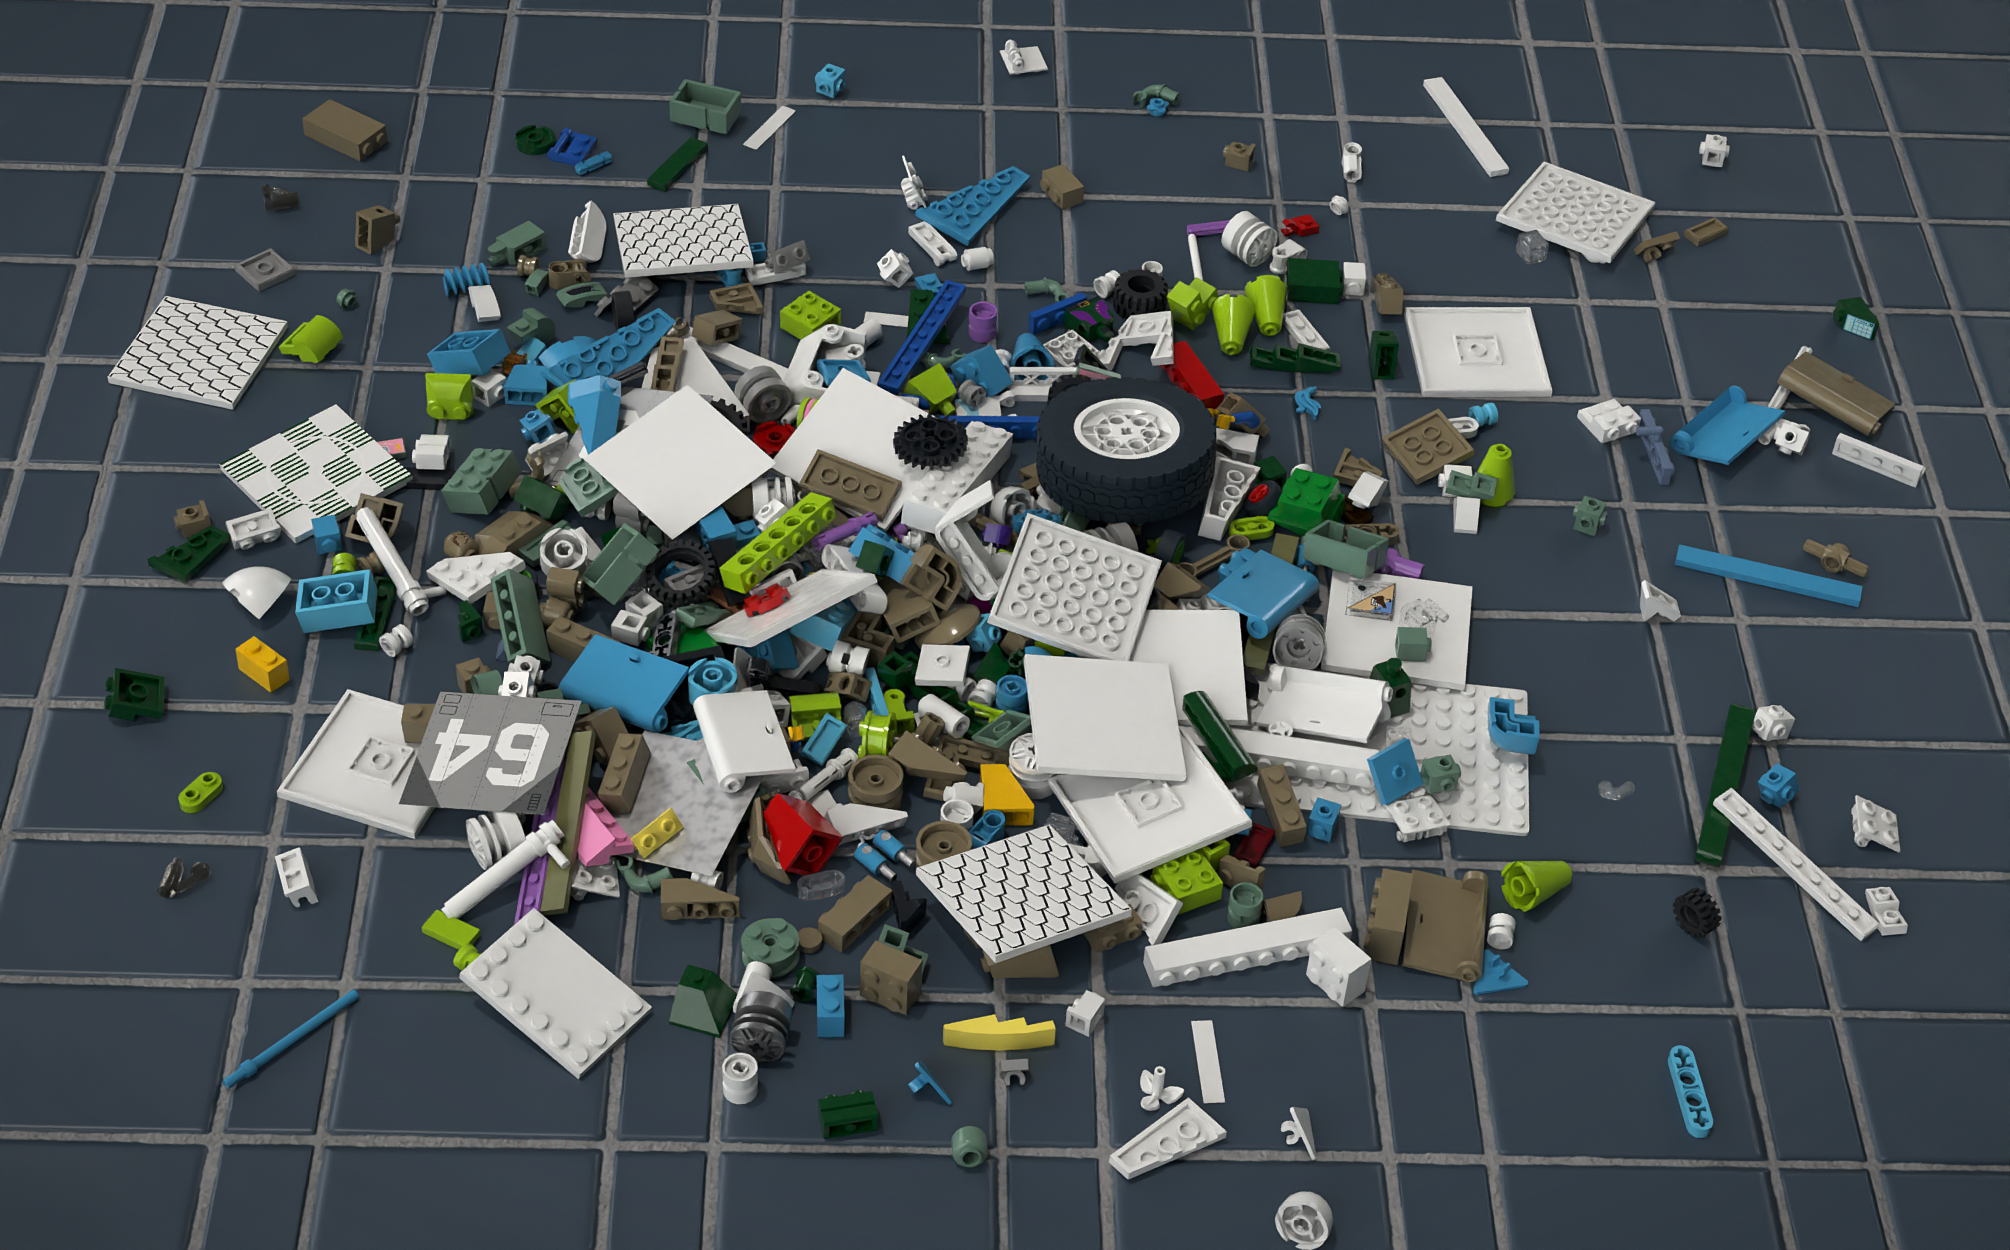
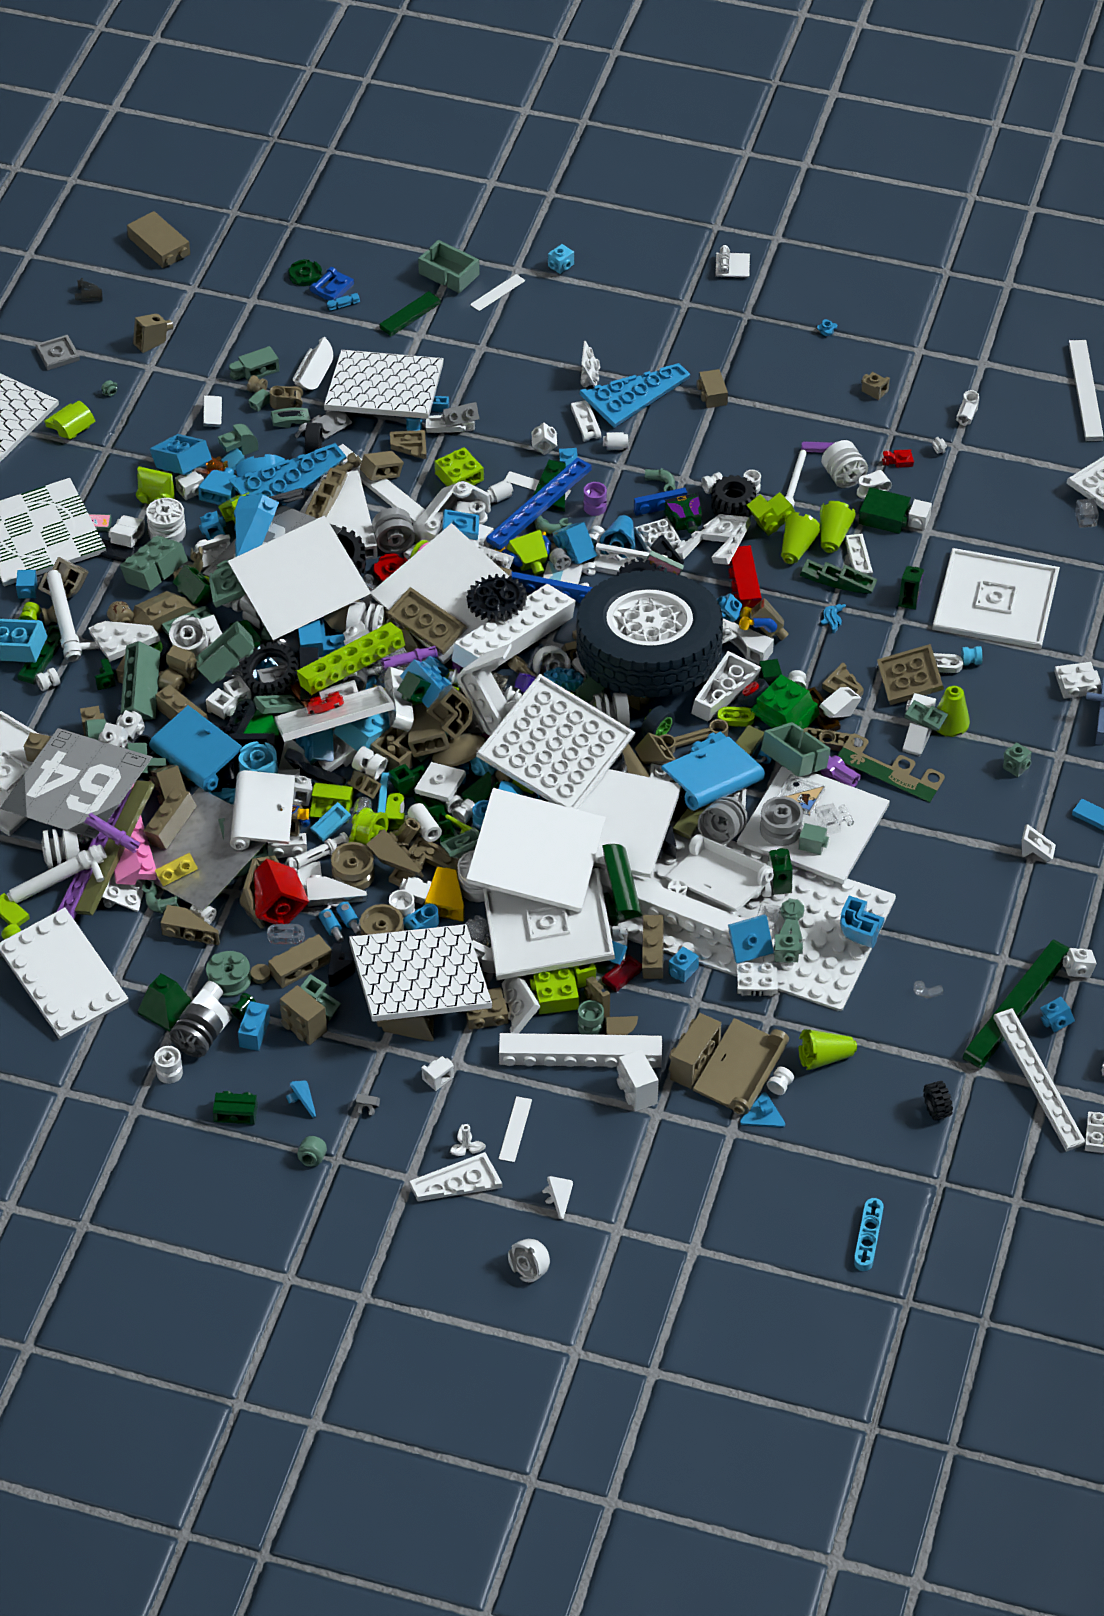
camera: 20 degrees right, 5 degrees up
(465, 278) = (202, 388): dark azure piece -> none
(477, 427) = (166, 519): none -> white wheel
(576, 806) = (118, 836): none -> medium lavender pin
(989, 1034) = (359, 1072): light yellow slope -> none
(1158, 91) = (835, 314): sand green piece -> none
(1367, 630) = (781, 820): none -> light grey wheel
(1387, 294) = (942, 533): dark tan slope -> none
(1424, 733) = (792, 911): none -> sand green piece
(1455, 558) = (891, 774): none -> piece

